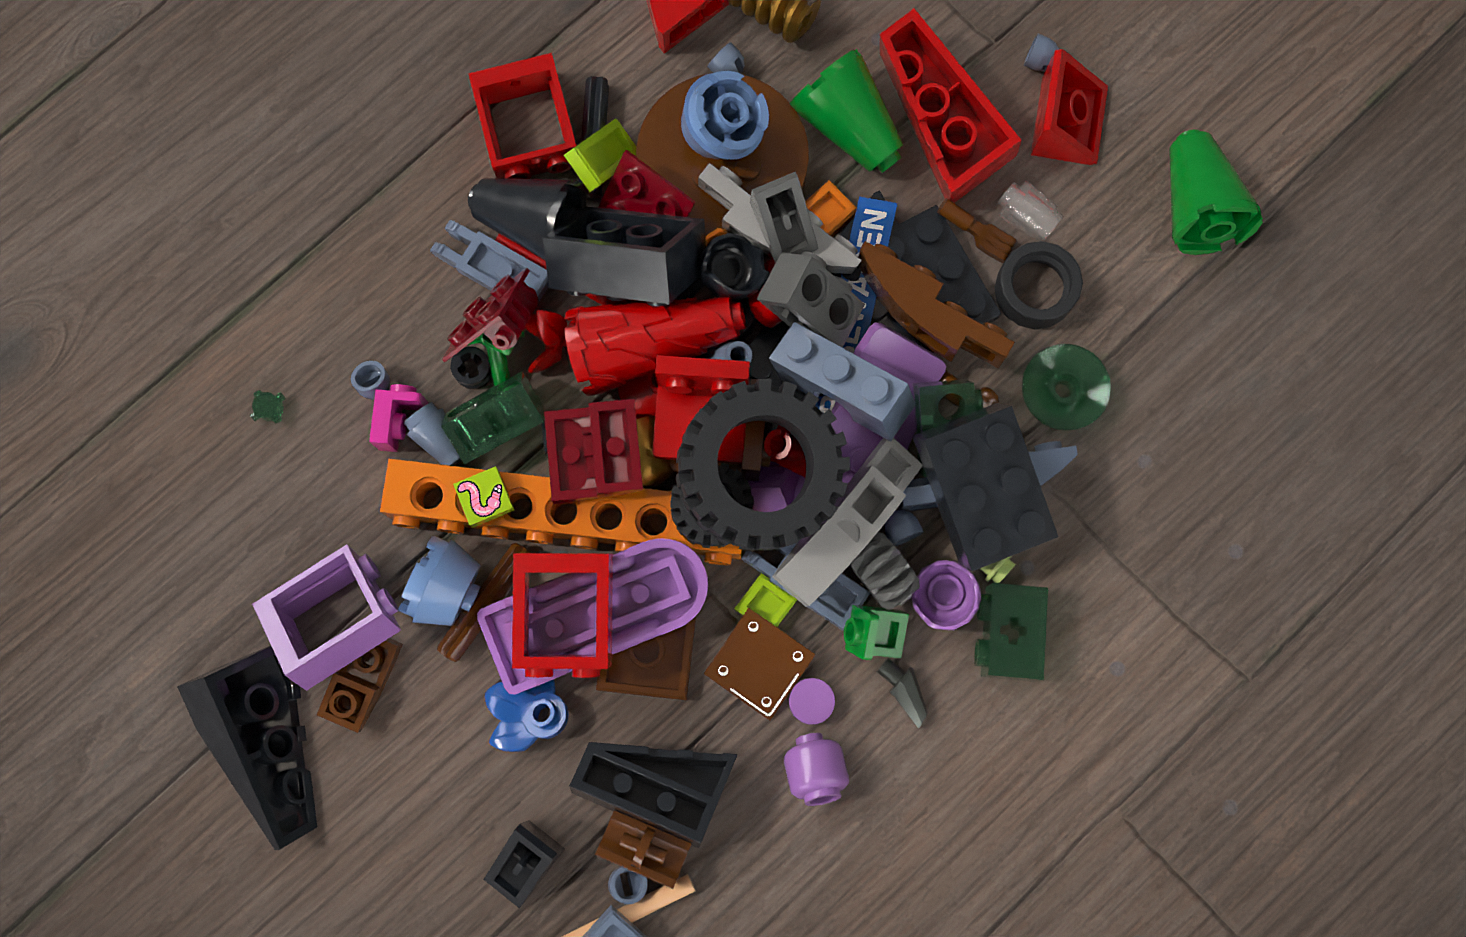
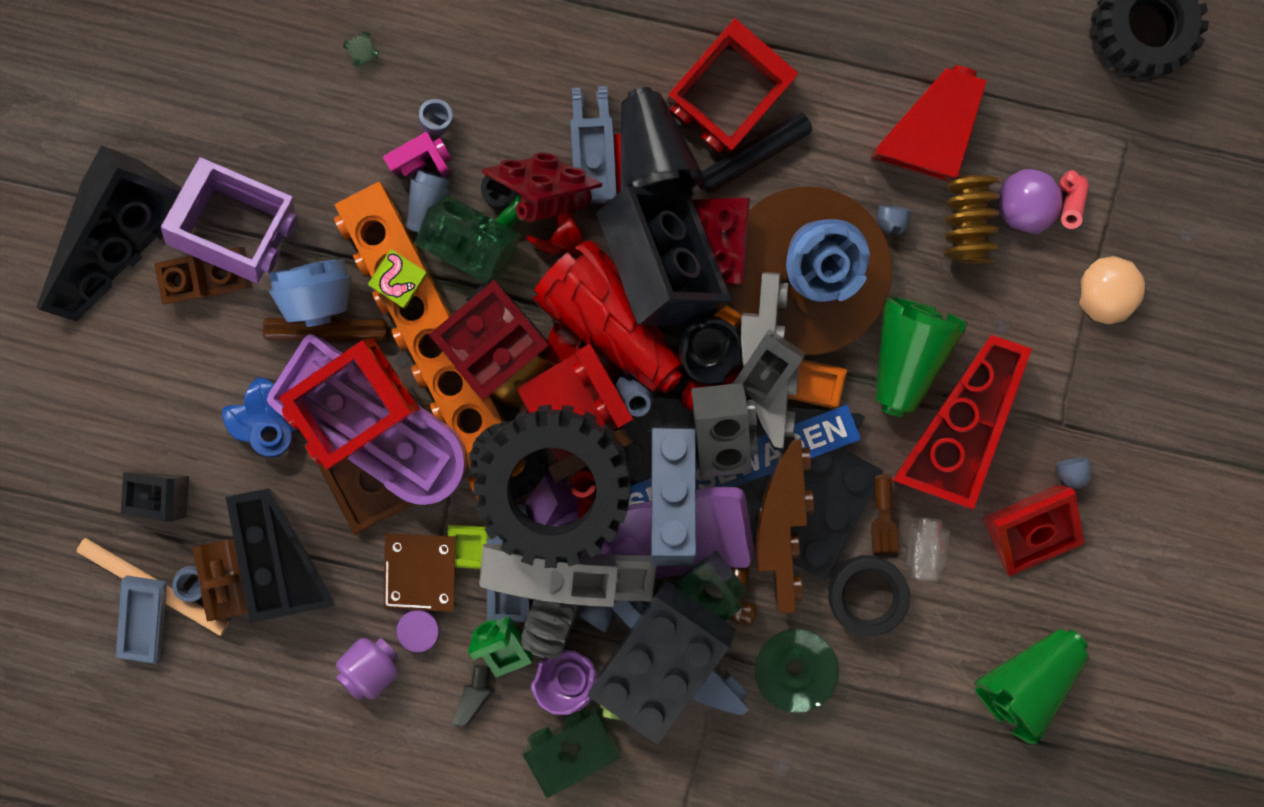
camera: 55 degrees right, 10 degrees up
(600, 154) = (739, 175): lime tile -> none

